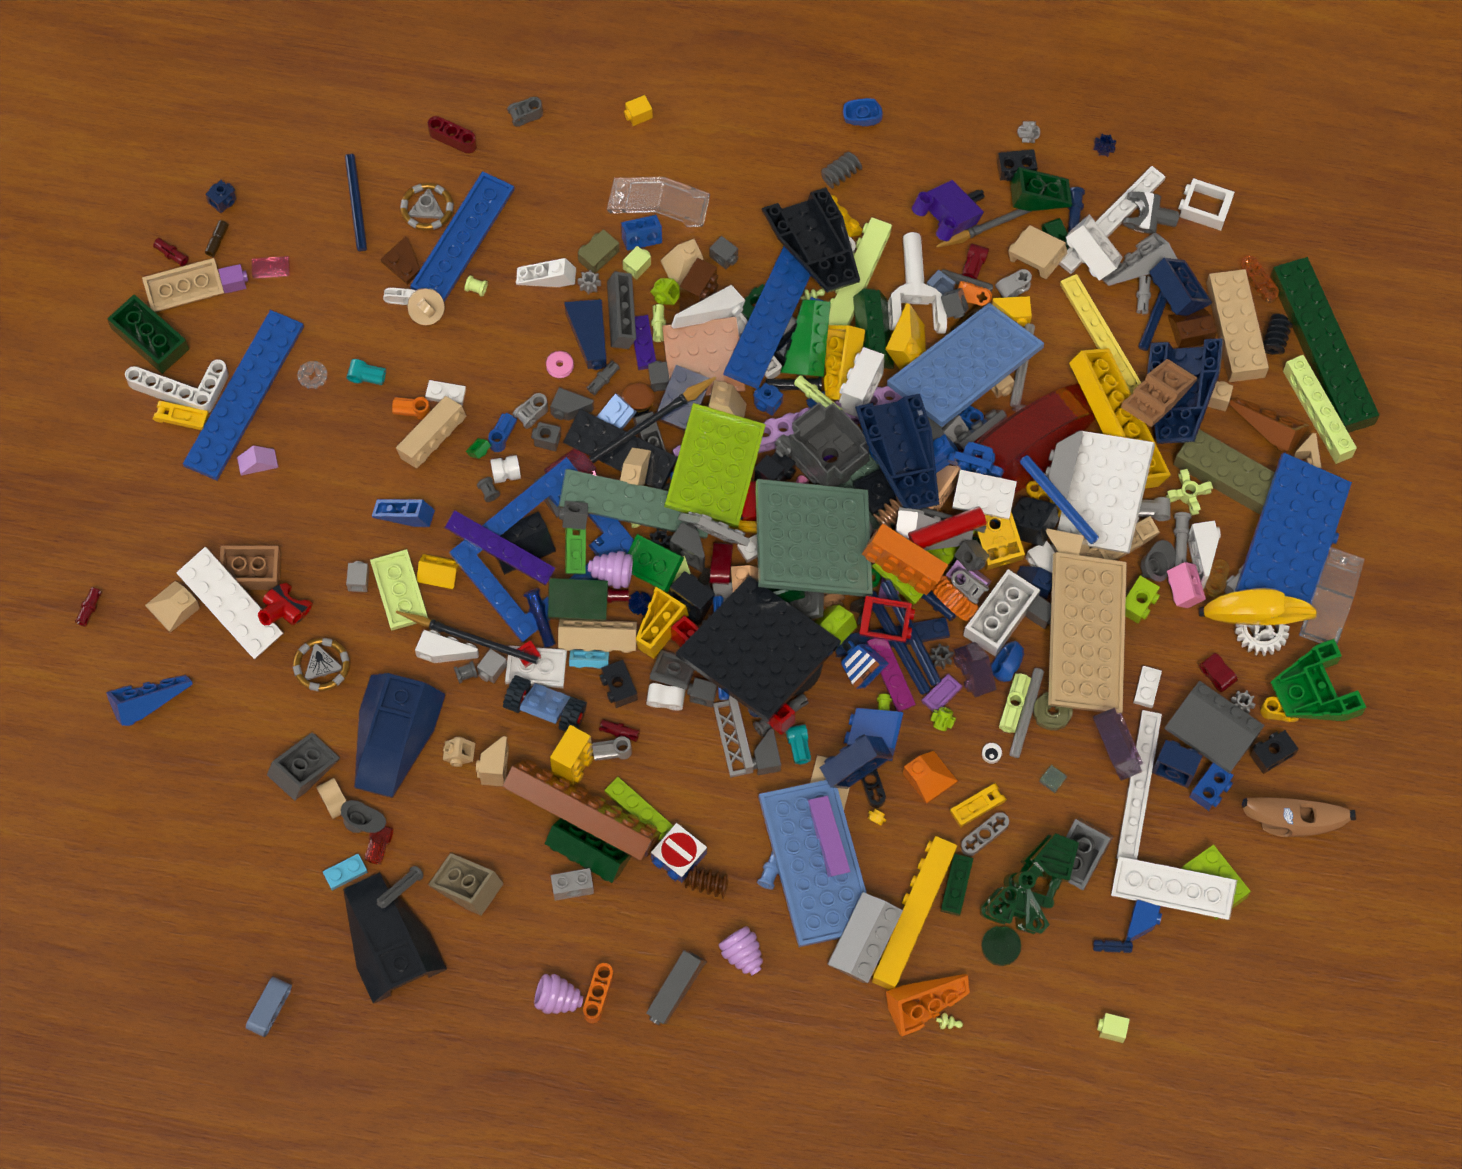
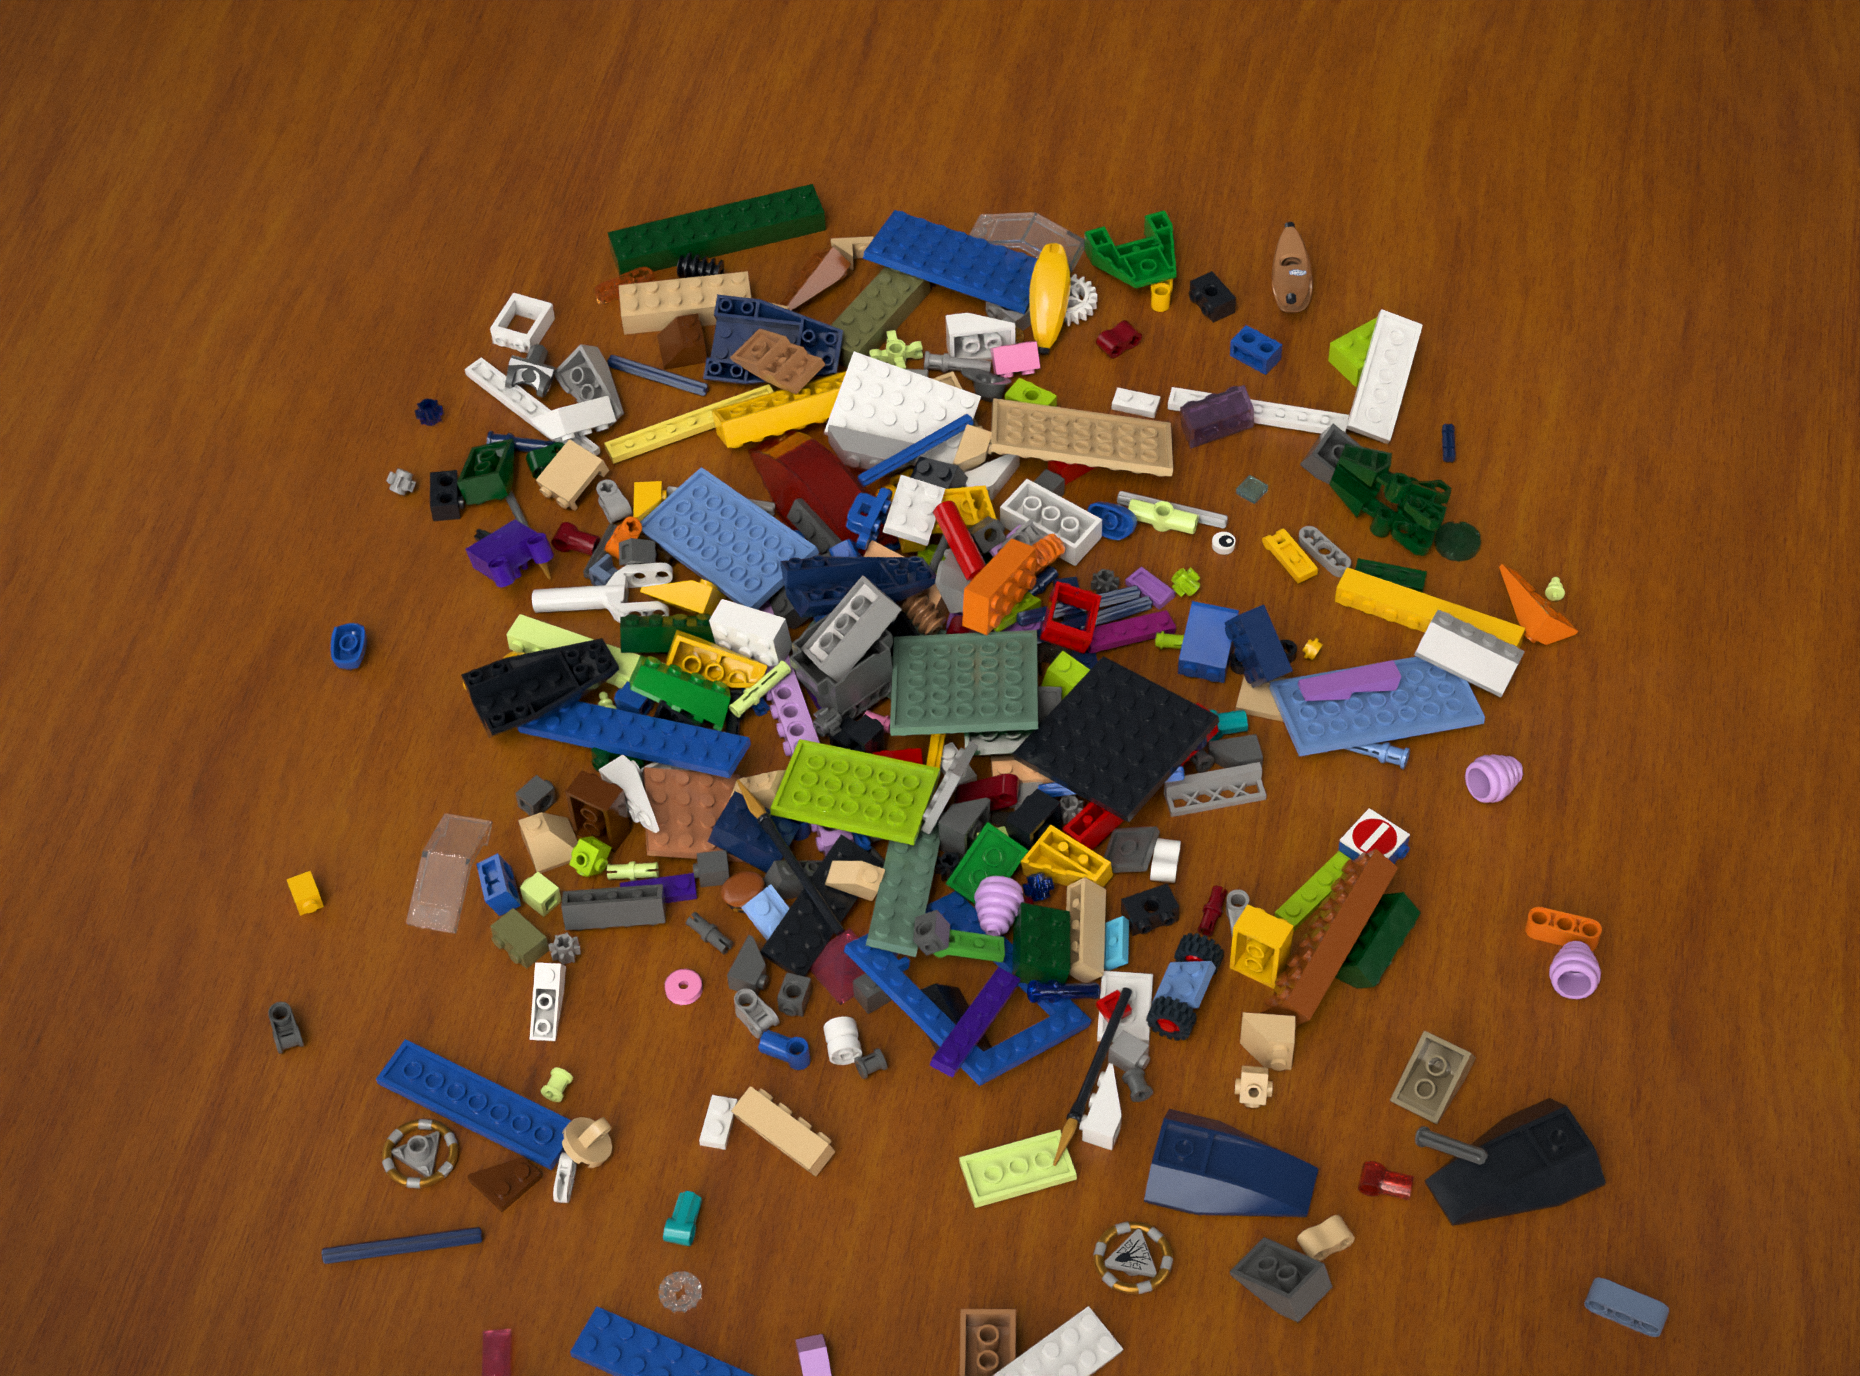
camera: 85 degrees left, 15 degrees down
(283, 606) = (1050, 1304): red connector -> none
(345, 871) = (1426, 1224): medium azure plate -> none
(357, 577) = (998, 1218): light grey brick -> none
(361, 818) = (1355, 1197): dark grey piece -> none
(405, 512) = (901, 1166): blue slope -> none
(410, 407) = (741, 1159): orange piece -> none
(437, 571) = (988, 1121): yellow panel -> none
(456, 141) = (305, 1130): dark red beam -> none
(478, 448) = (808, 1076): green plate -> none
(572, 884) = (1425, 957): light grey brick -> none
(588, 329) = (641, 947): dark blue slope -> none
(675, 987) = (1547, 844): dark grey slope -> none
(702, 692) = (1160, 815): dark grey brick -> none
(707, 881) = (1410, 811): reddish brown piece -> none
(768, 398) = (760, 749): blue brick -> none
(839, 441) = (851, 629): none -> light grey slope
(840, 168) = (429, 670): dark grey piece -> none
(862, 664) = (1123, 648): torso -> none
(929, 776) = (1253, 595): orange slope -> none
(976, 668) = (1122, 543): clear purple brick -> none
(1037, 577) = (1005, 486): dark blue slope -> none
(1048, 721) = (1177, 493): olive plate -> none
(1113, 1027) = (1545, 441): yellowish green brick -> none
(1143, 294) = (636, 385): light grey pin -> none
(1143, 919) = (1419, 414): blue slope -> none
(1177, 763) = (1236, 366): dark blue brick -> none
(1179, 286) = (636, 345): dark blue slope -> none
(1214, 727) = (1188, 339): dark grey slope -> none
(1244, 698) = (1155, 319): light grey gear -> none
(1319, 409) = (796, 238): yellowish green brick -> none

